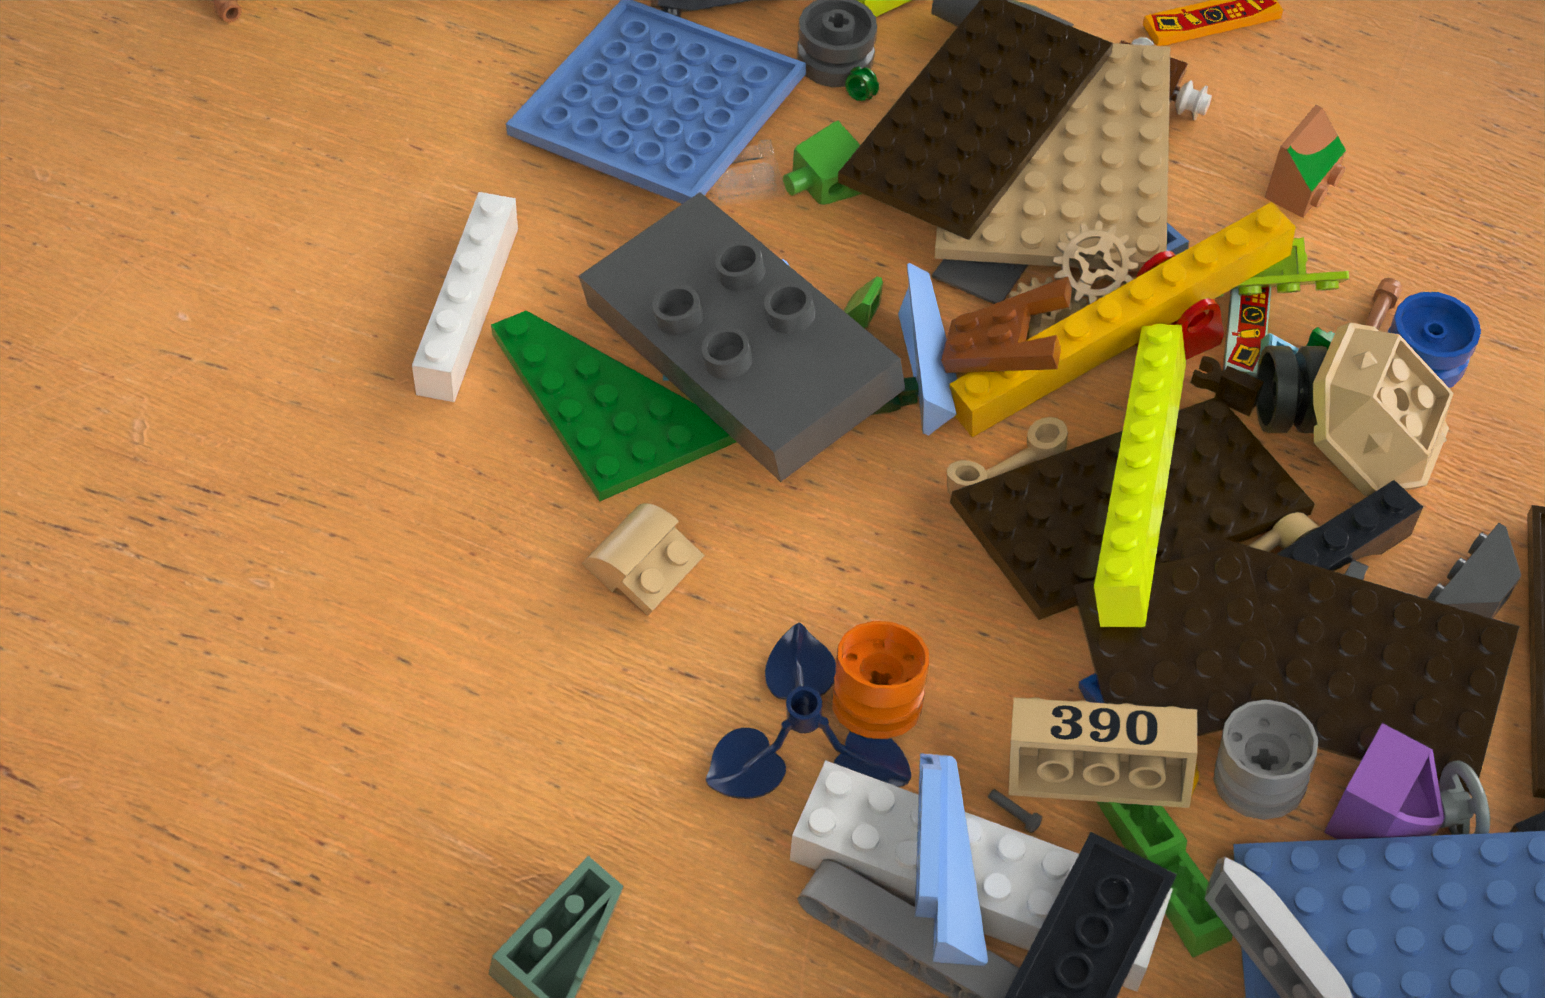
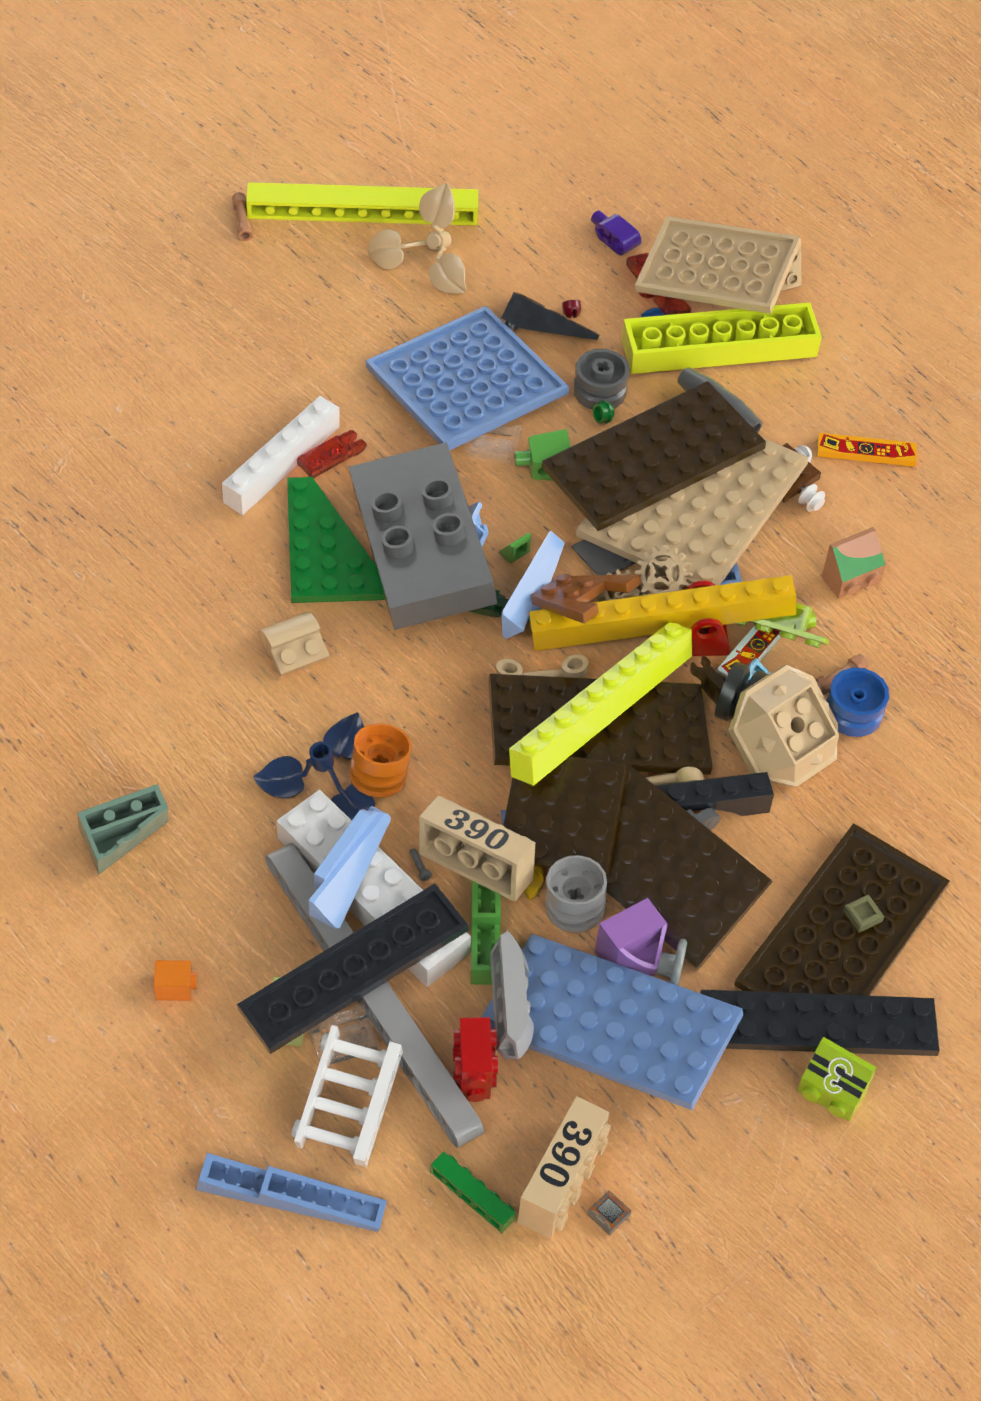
camera: 25 degrees right, 0 degrees up
(531, 270) = (331, 453): none -> clear red hinge
(1485, 578) = (784, 854): dark grey slope -> none

